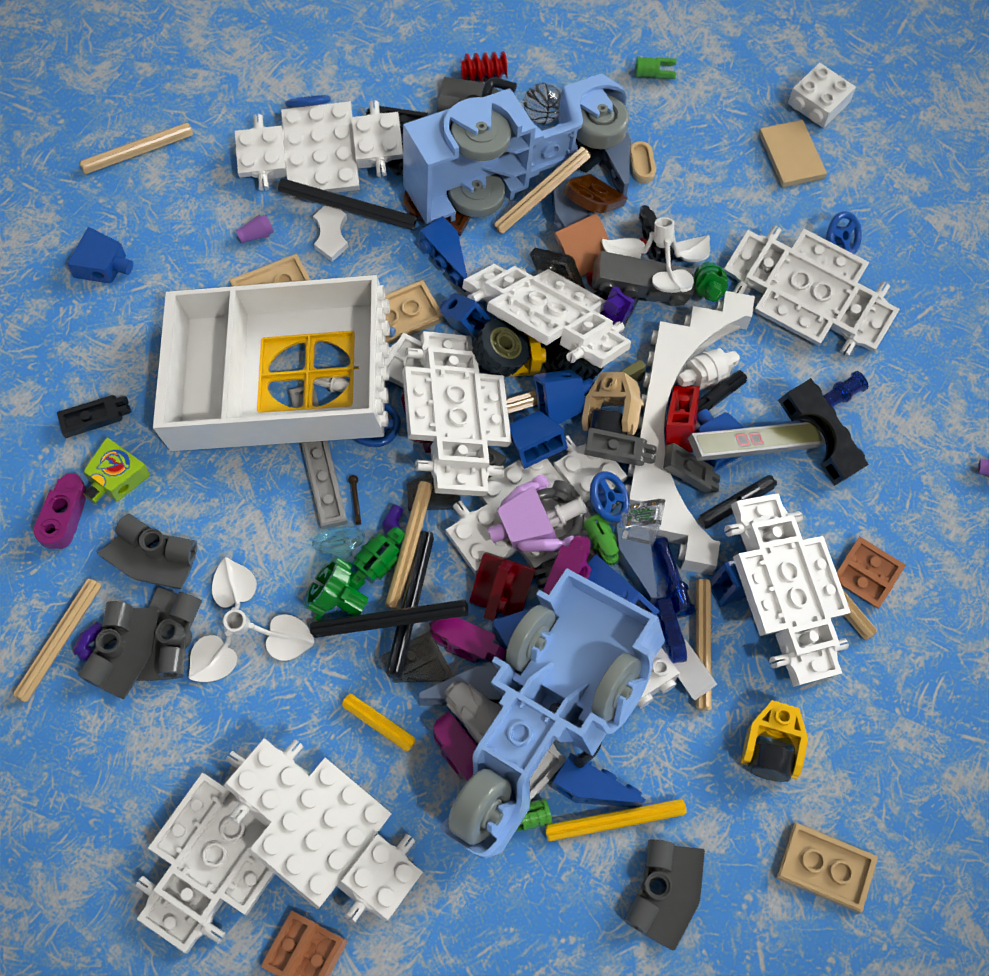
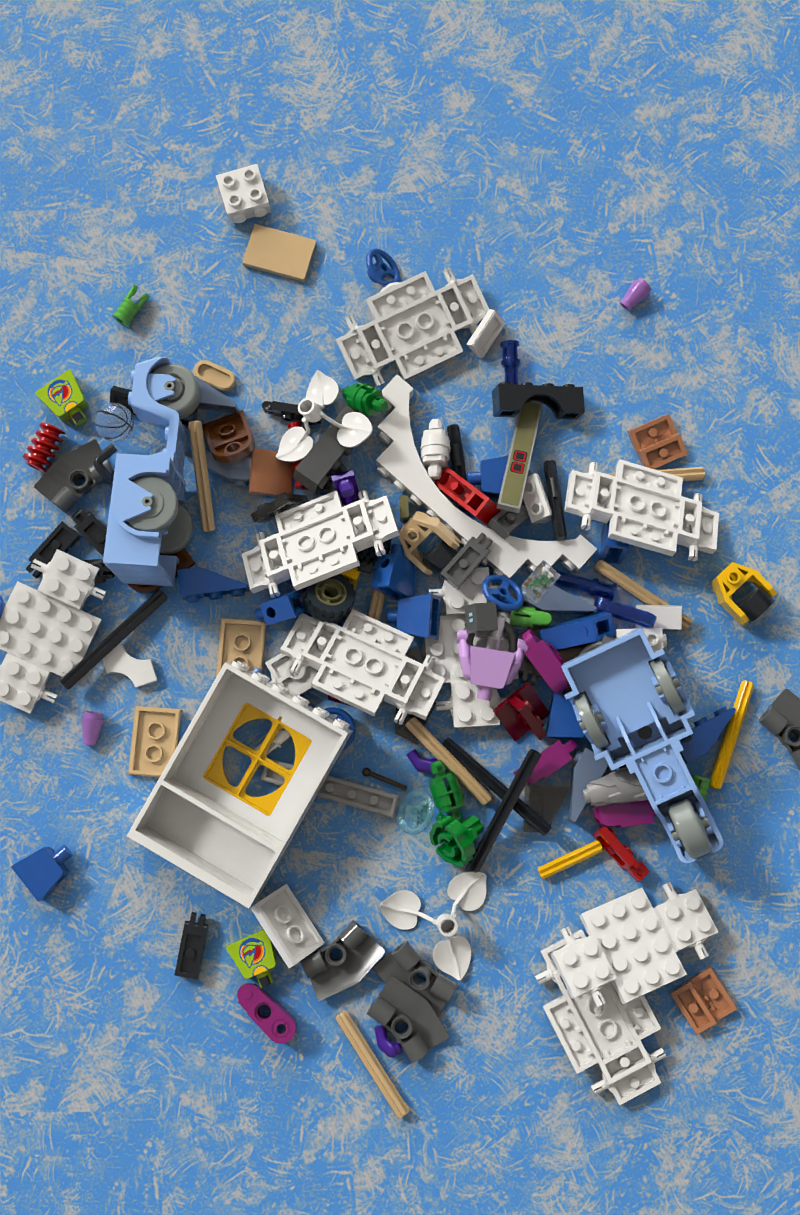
camera: 55 degrees left, 15 degrees up
(157, 482) = (287, 925): none -> white plate
(414, 771) = (620, 853): none -> red hinge
(538, 61) = (65, 398): none -> lime torso
(568, 485) = (481, 619): none -> dark grey brick
(725, 481) = (536, 500): none -> white bracket
(853, 355) = (486, 333): none -> white tile

